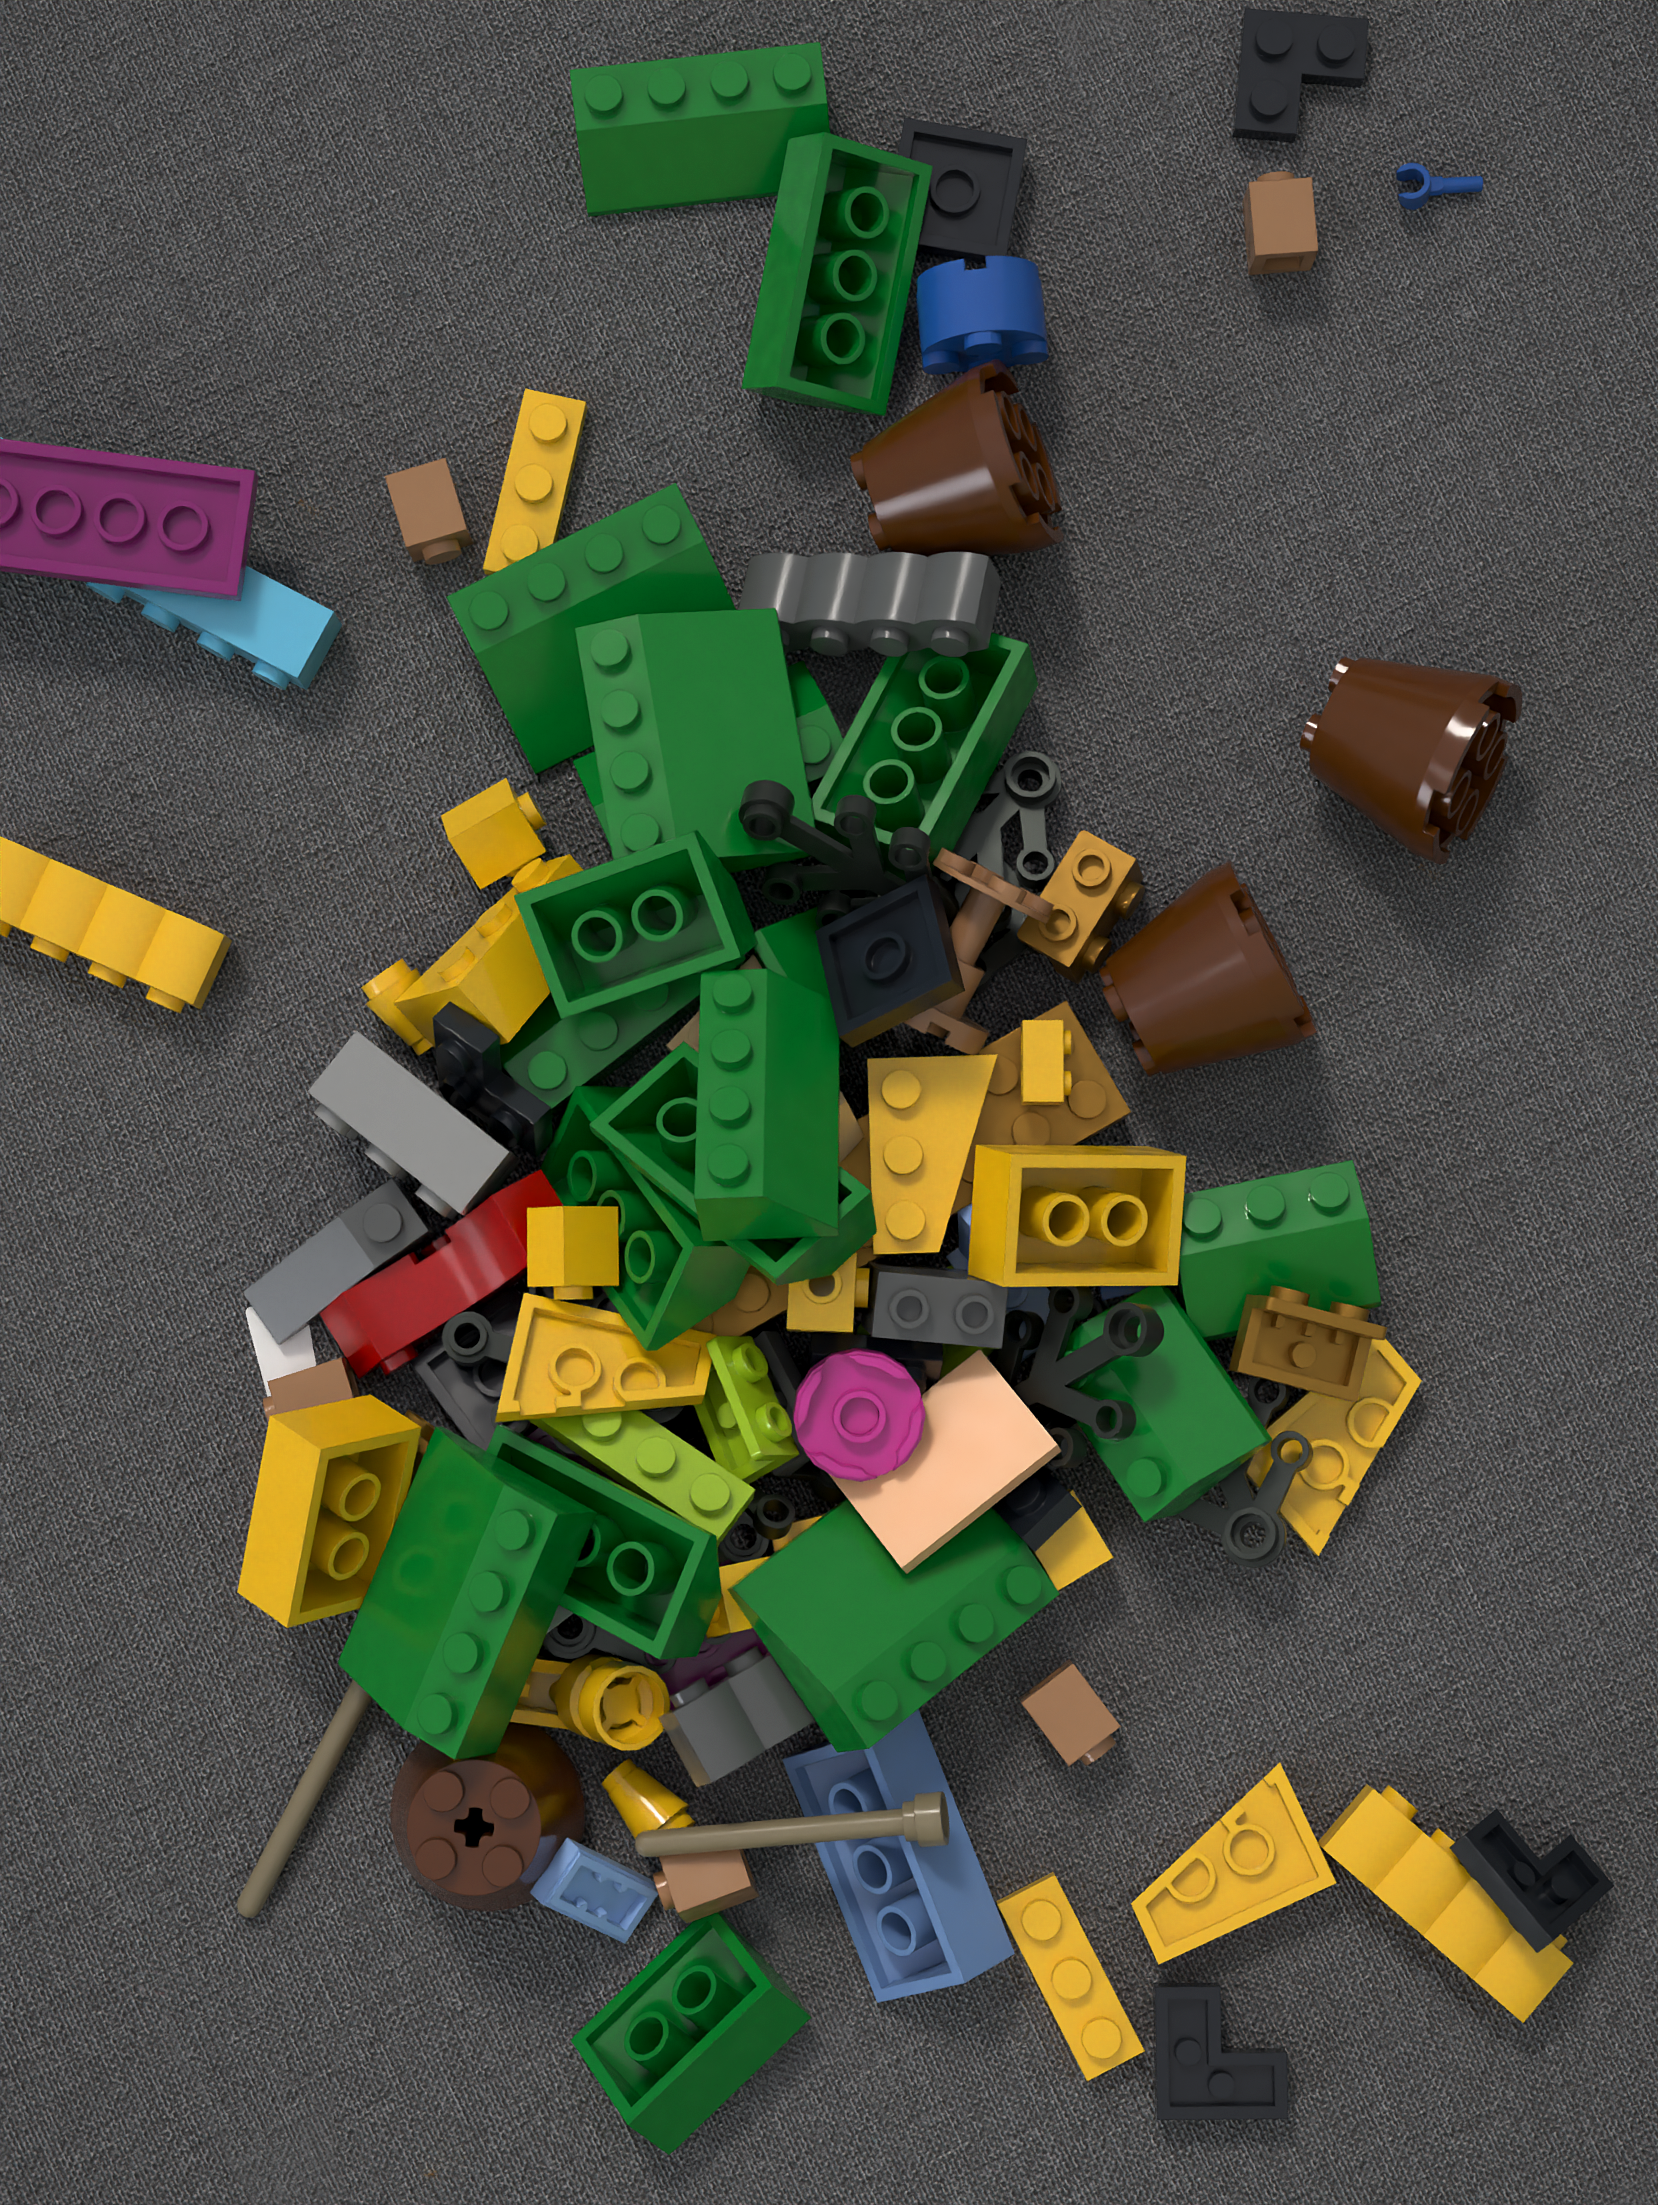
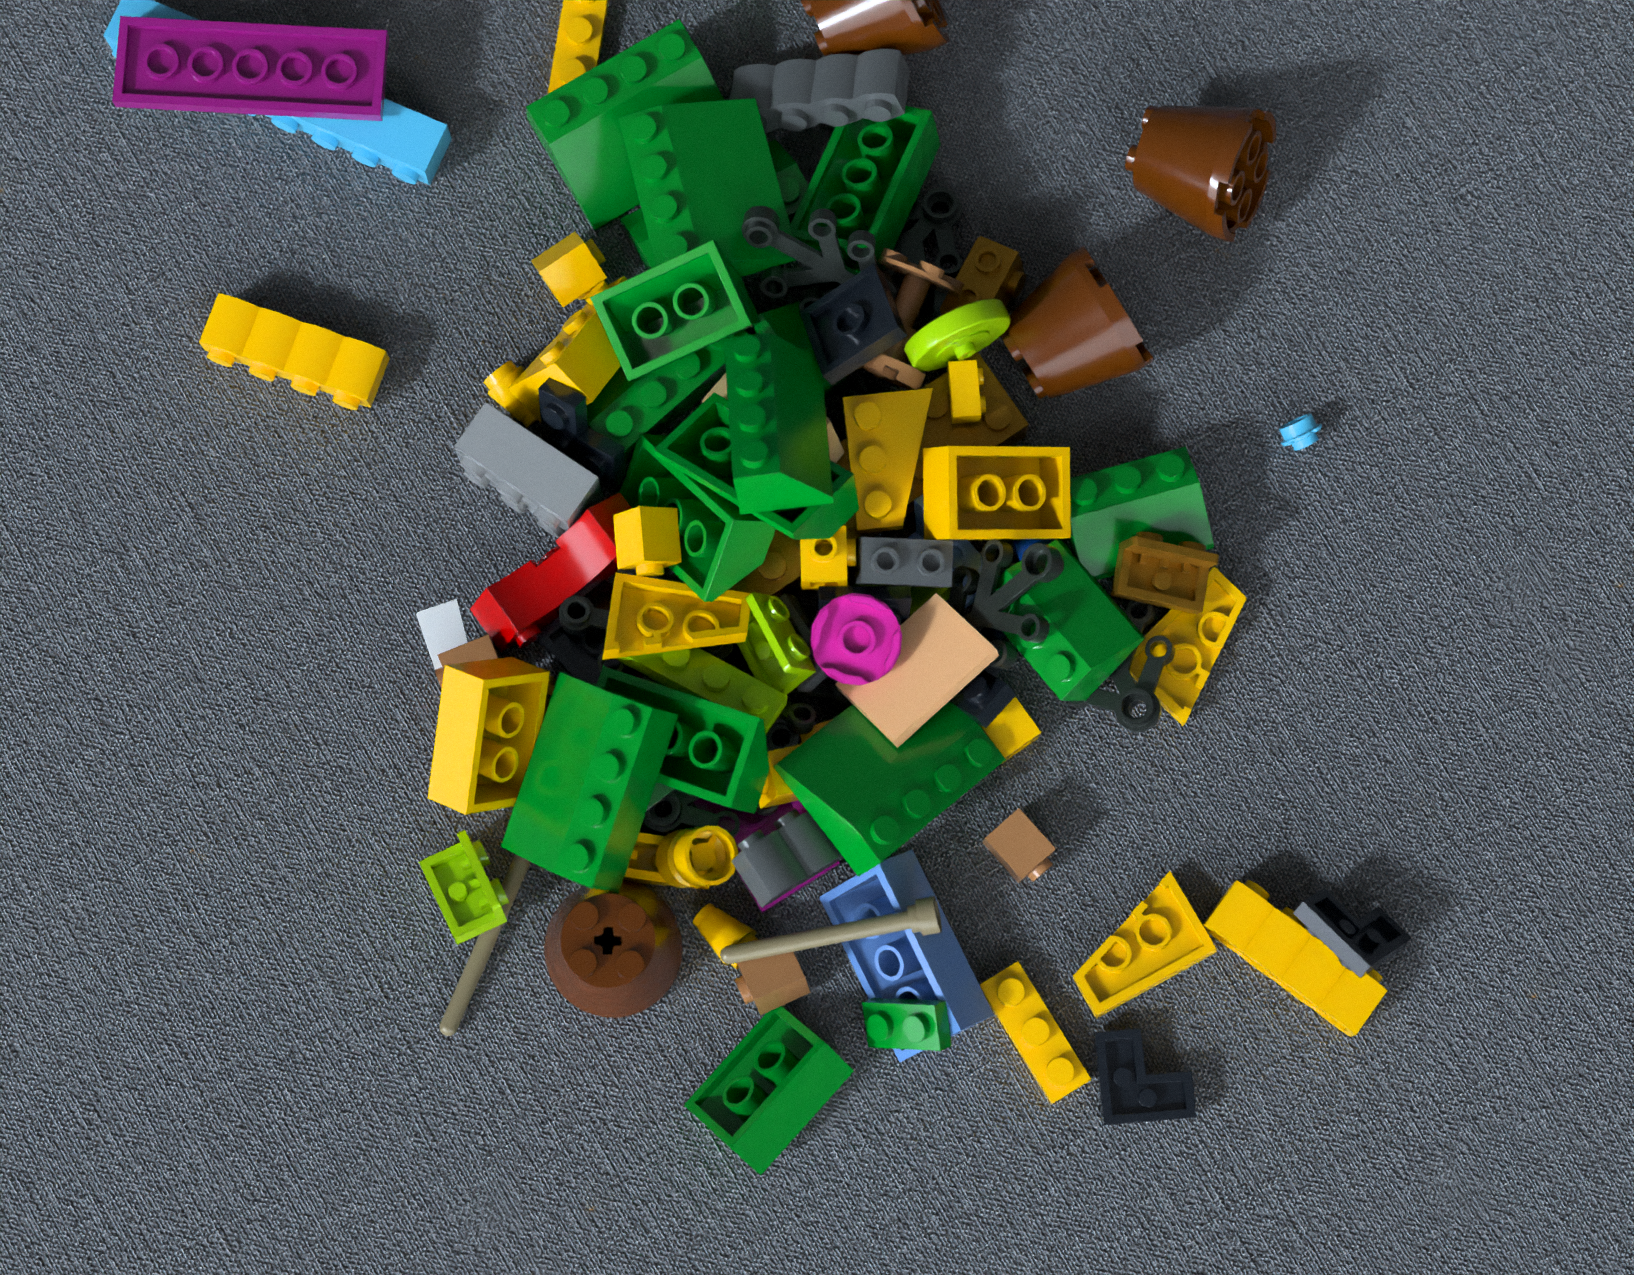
camera: 10 degrees left, 5 degrees down
(282, 1716) = (463, 889): none -> lime bracket
(338, 1257) = (484, 562): slope -> none
(429, 512) = (508, 55): medium nougat brick -> none
(595, 1890) = (694, 992): light blue plate -> none
(891, 1959) = (907, 1024): none -> green plate
(1038, 984) = (957, 334): none -> lime wheel
(1518, 1143) = (1300, 432): none -> medium azure plate

